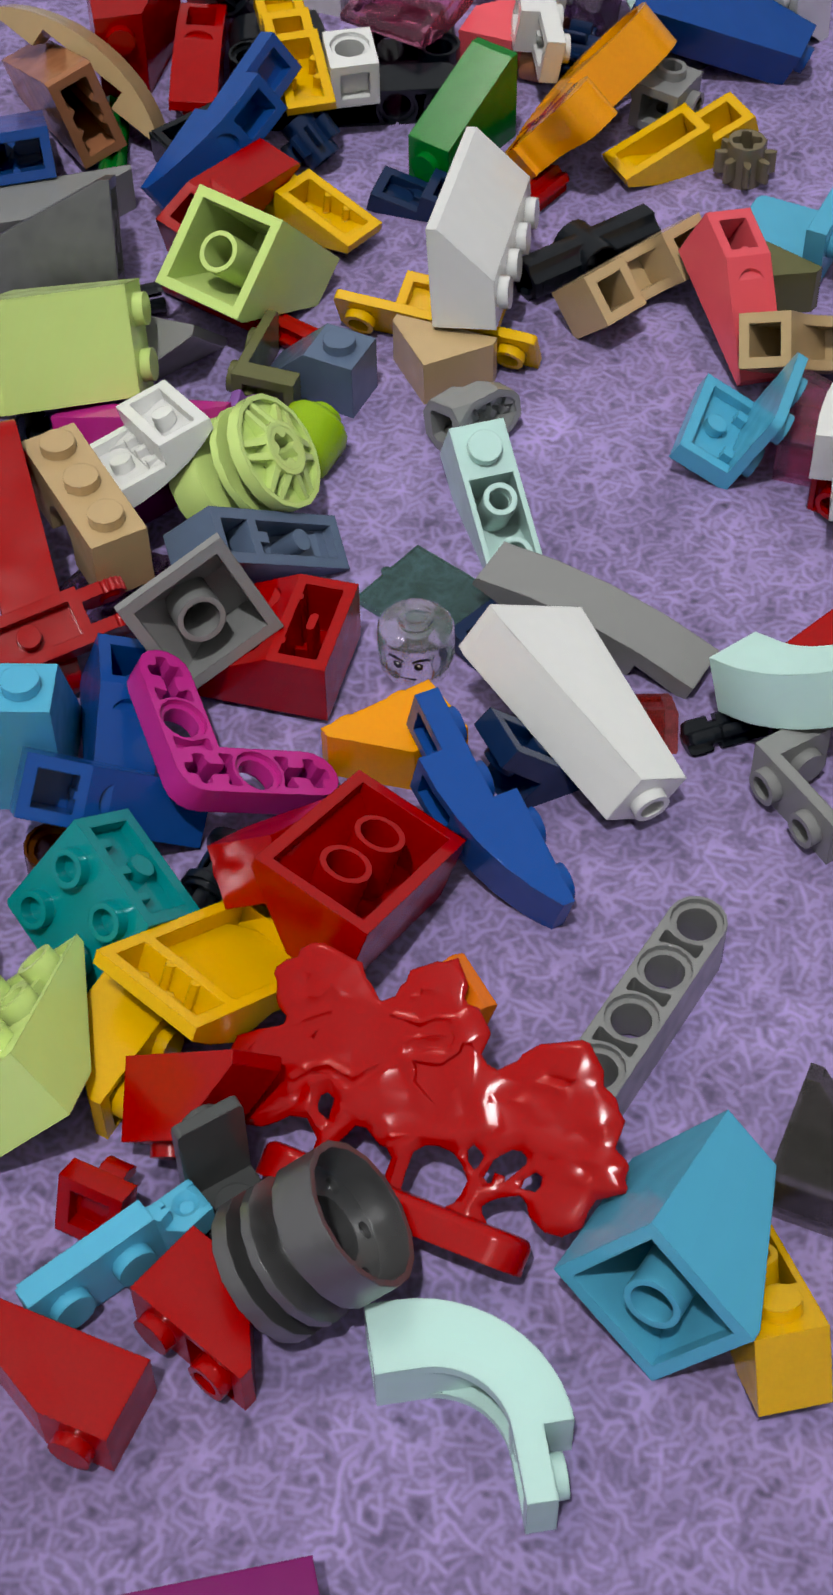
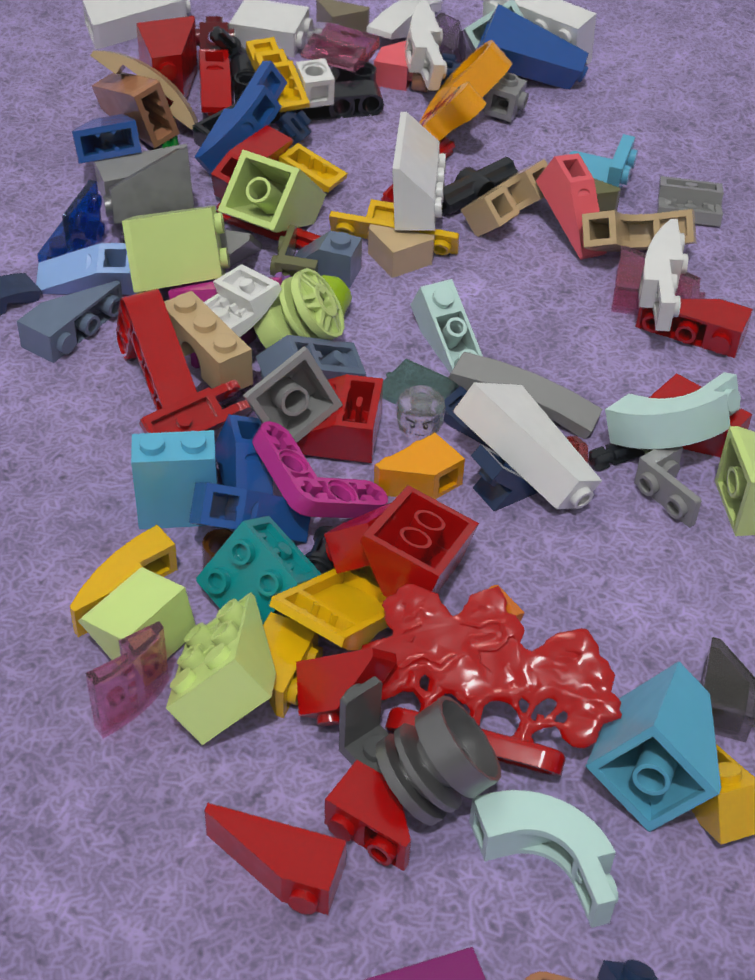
camera: 10 degrees left, 5 degrees down
(92, 1194) = (289, 754): red tile -> none
(113, 1256) = (309, 781): medium azure hinge -> none
(405, 195) = (359, 159): dark blue slope -> none
(470, 405) = (420, 275): light grey rock -> none
(475, 94) = (379, 120): green slope -> none
(501, 834) = (501, 520): blue slope -> none
(655, 1013) = (610, 602): light grey beam -> none
(678, 142) = (522, 122): yellow slope -> none
(728, 431) = (584, 287): medium azure bracket -> none
(745, 159) = (559, 131): dark tan gear -> none

